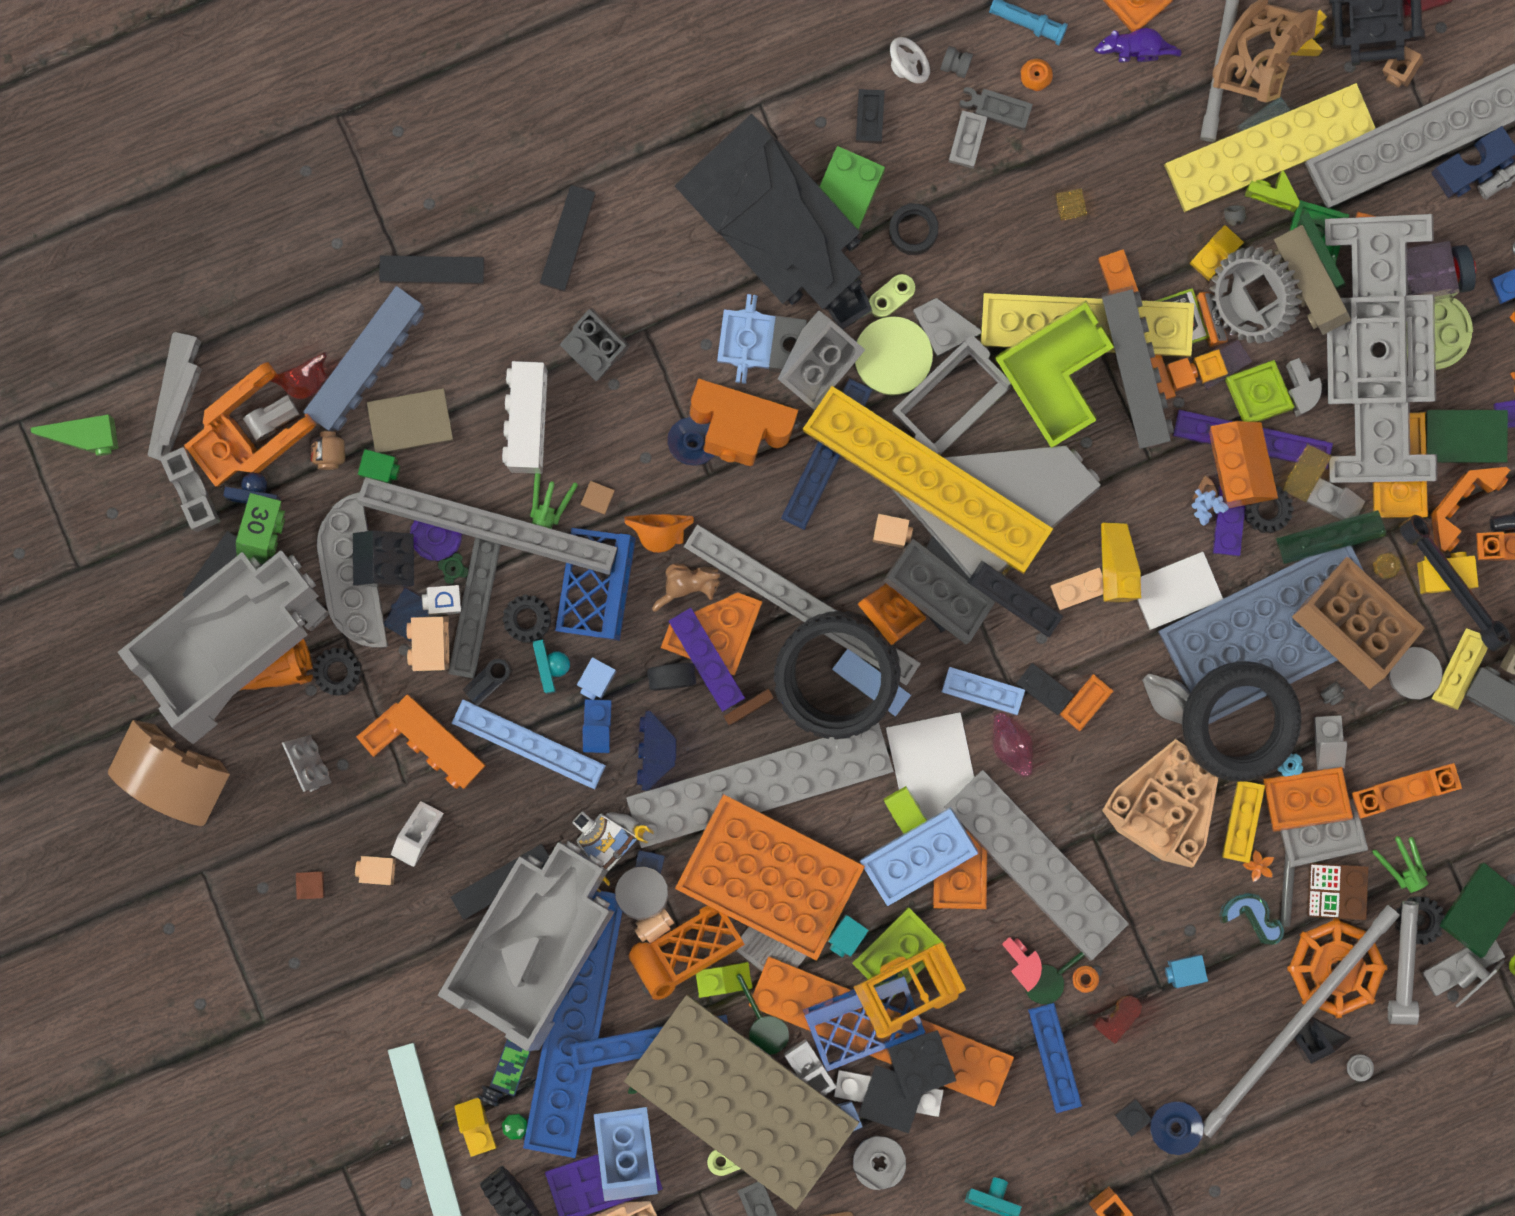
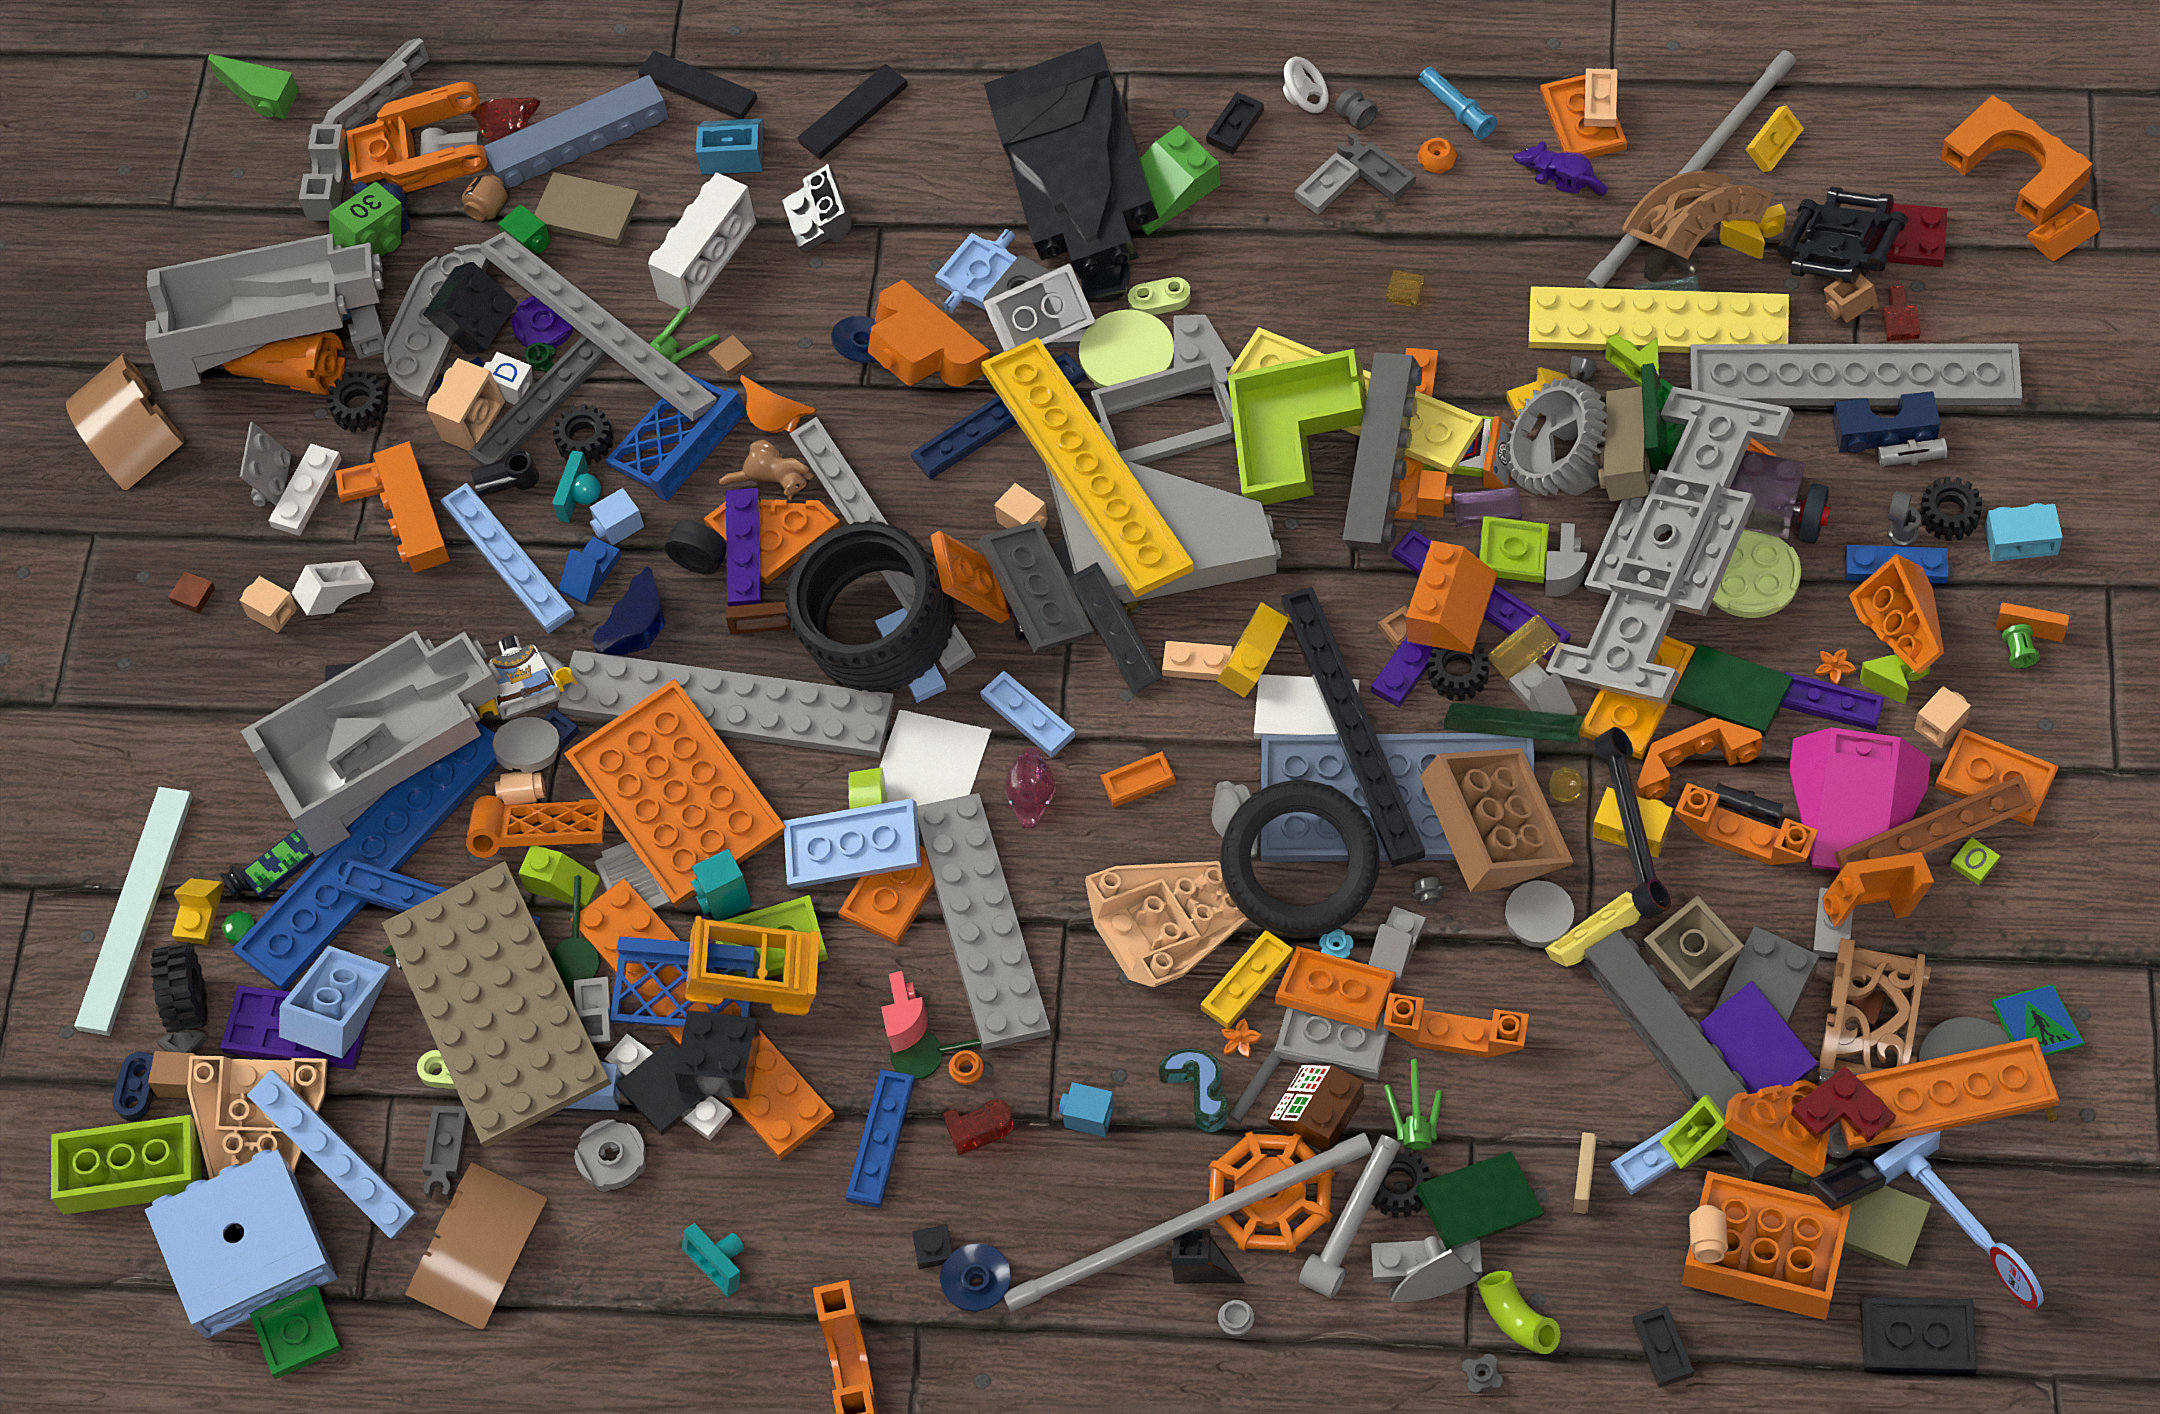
camera: 30 degrees right, 25 degrees down
(342, 761) = (305, 489): none -> white plate
(492, 313) = (730, 146): none -> dark azure slope
(928, 215) = (1214, 222): black tyre -> none
(1044, 689) = (1098, 743): black plate -> none
(1205, 502) = (1389, 622): light blue animal -> none
(1210, 366) = (1470, 497): light orange tile -> none
(1222, 596) = (1353, 727): none -> black plate
(1446, 66) = (1900, 319): none -> clear red plate

